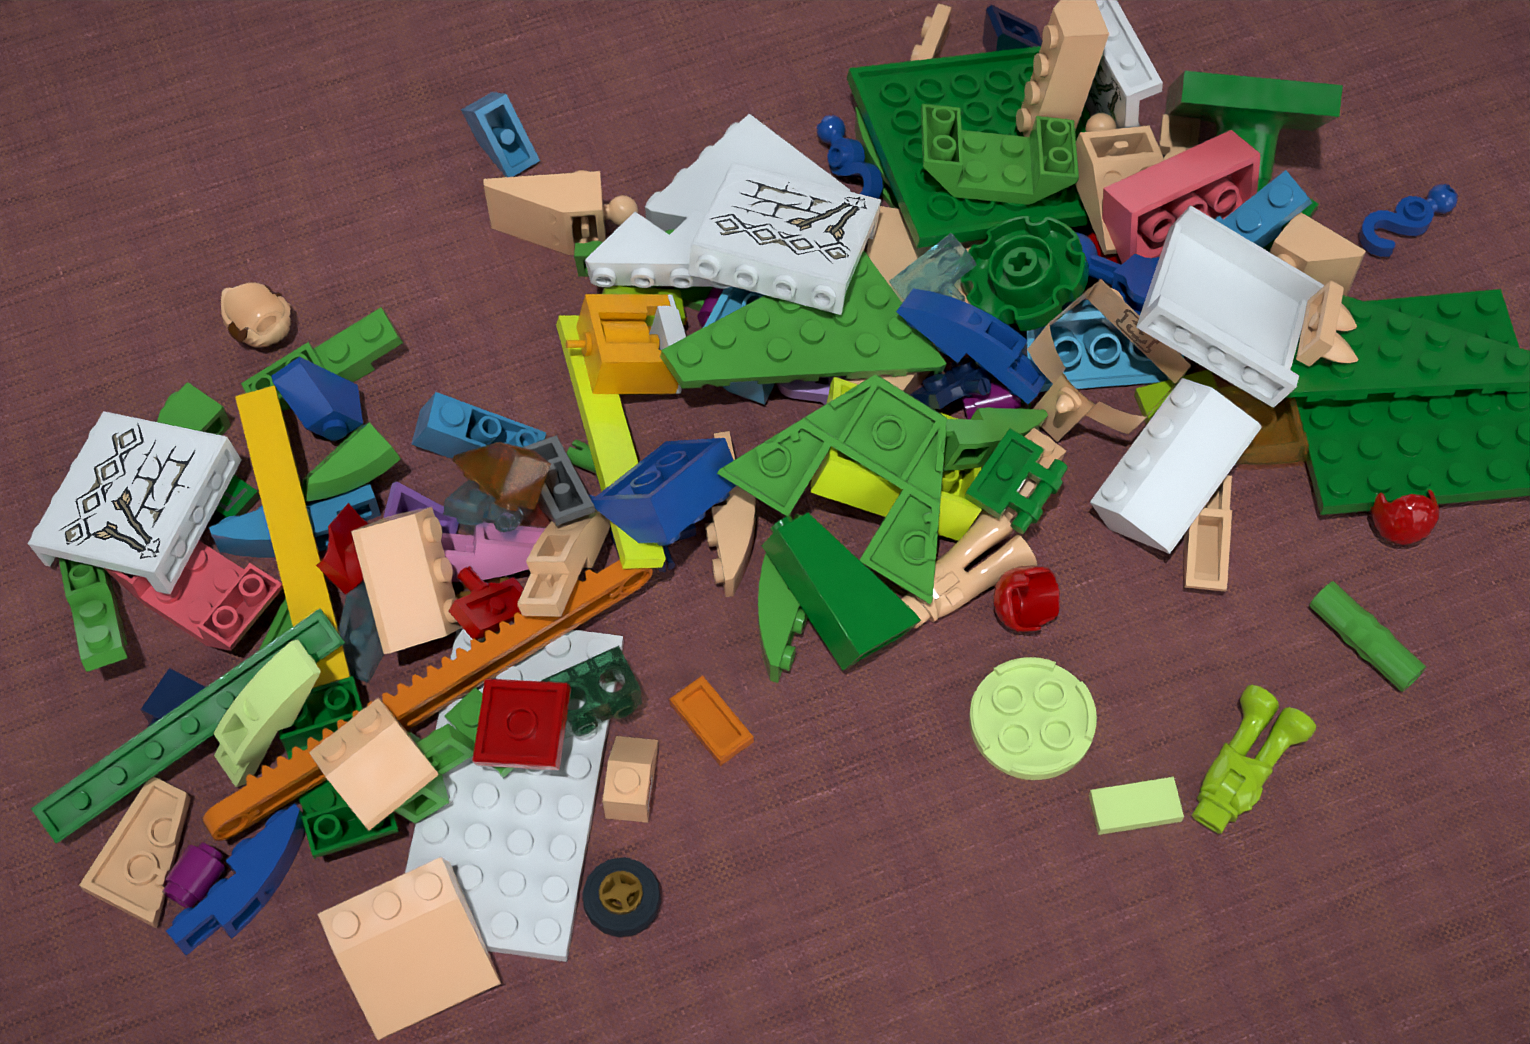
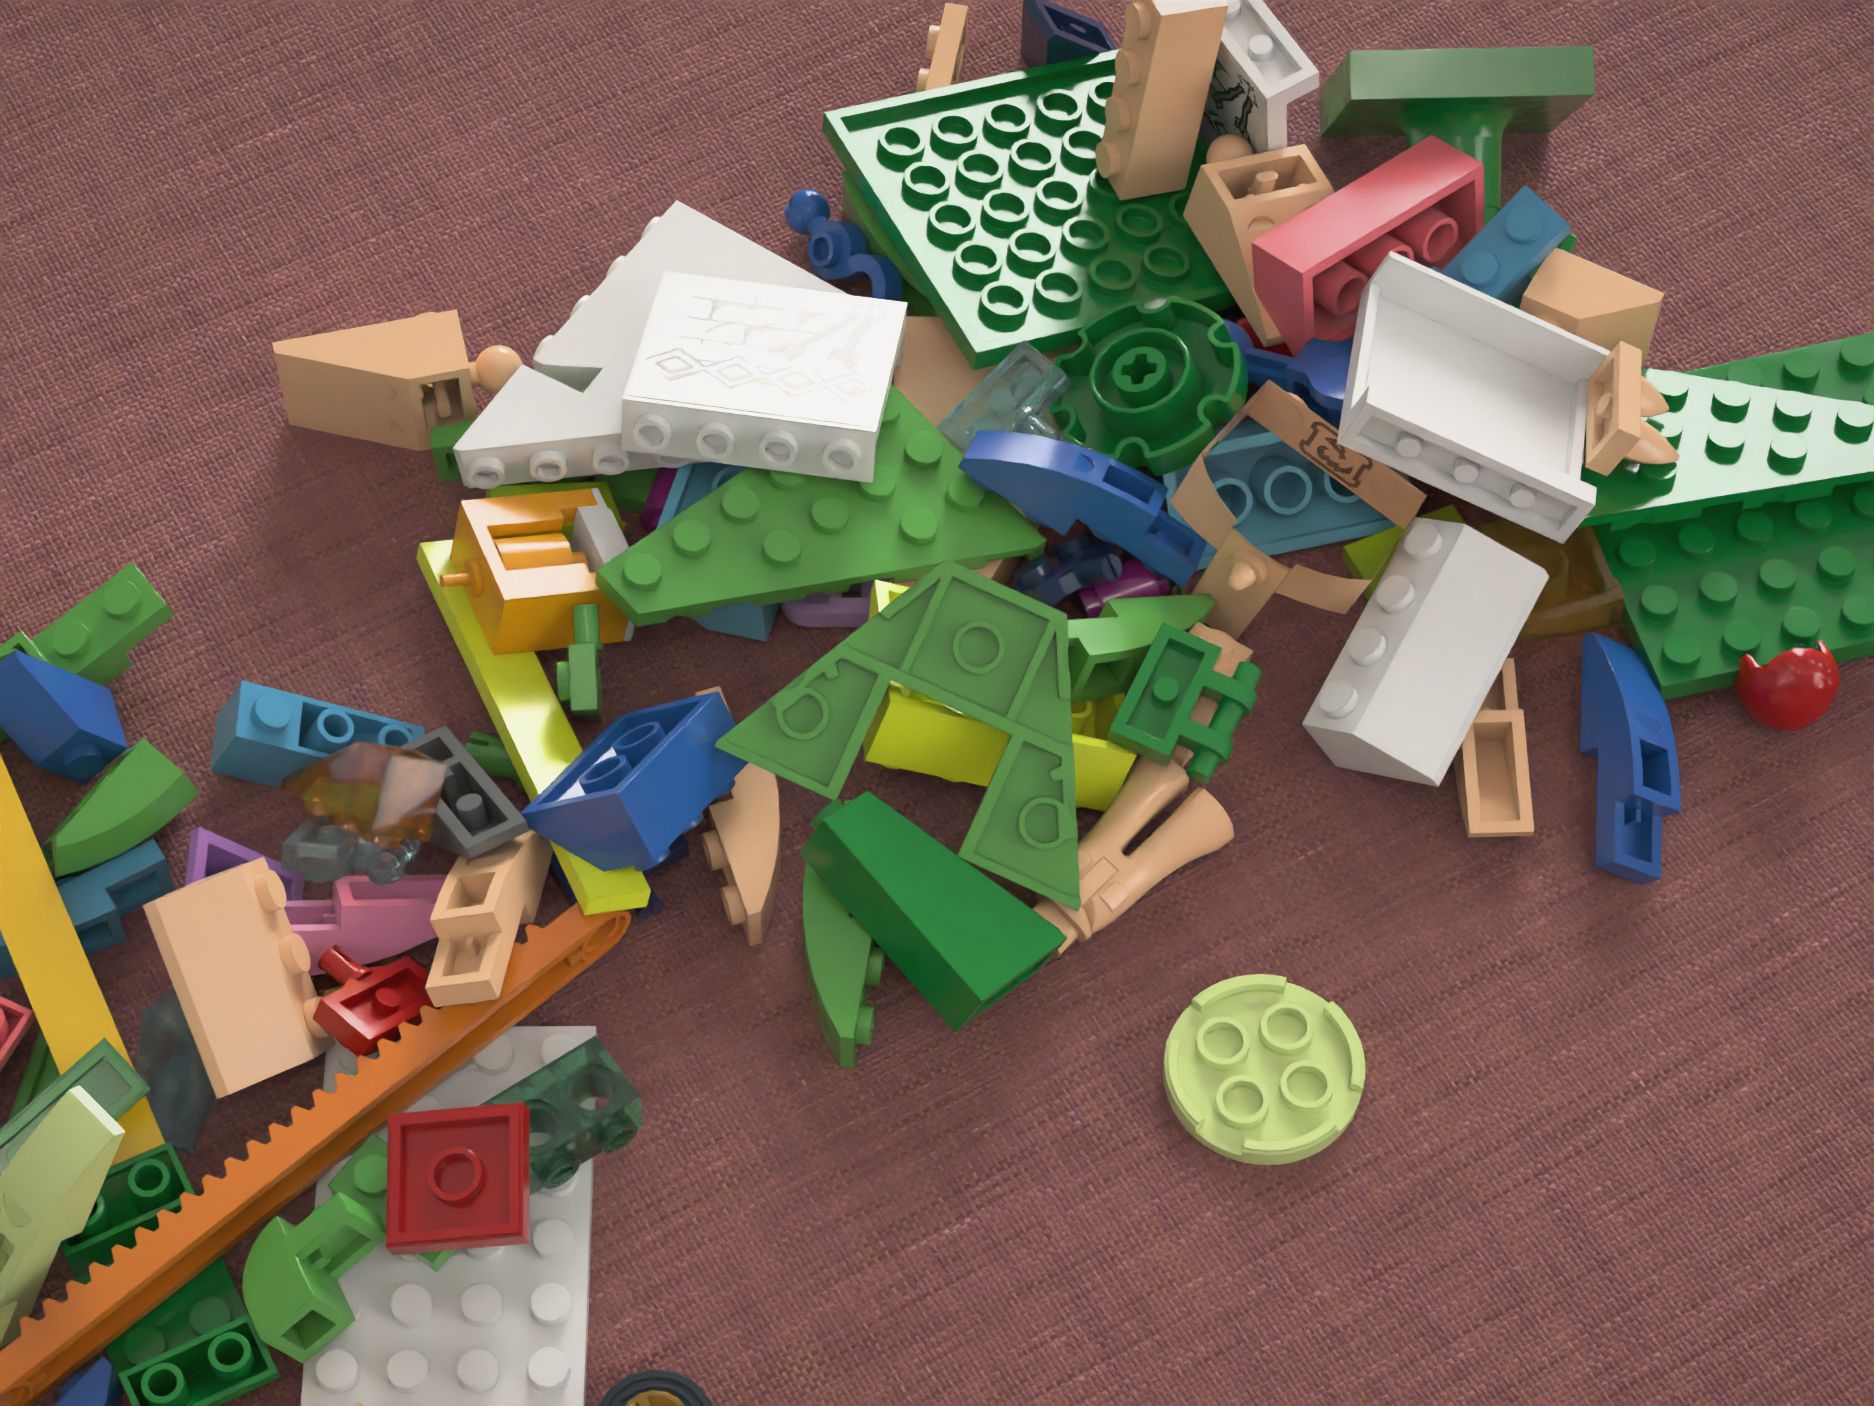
camera: 10 degrees left, 5 degrees down
(341, 559) = (130, 958): red slope -> none
(373, 763) = (228, 1269): light nougat slope -> none
(500, 133) = (284, 275): dark azure slope -> none
(630, 779) = (641, 1248): light nougat slope -> none
(645, 414) = (581, 676): none -> bright green plate
(711, 720) = (757, 1139): orange tile -> none
(998, 164) = (1081, 230): bright green slope -> none
(1027, 598) = (1227, 883): red hair -> none
(1136, 805) = (1446, 1181): yellowish green tile -> none
(1178, 134) = (1346, 155): light nougat plate -> none
(1236, 781) = (1597, 1121): lime piece -> none
(1299, 555) = (1636, 754): none -> blue slope
(1367, 636) = (1760, 875): bright green axle -> none
(1410, 218) = (1719, 243): blue piece -> none

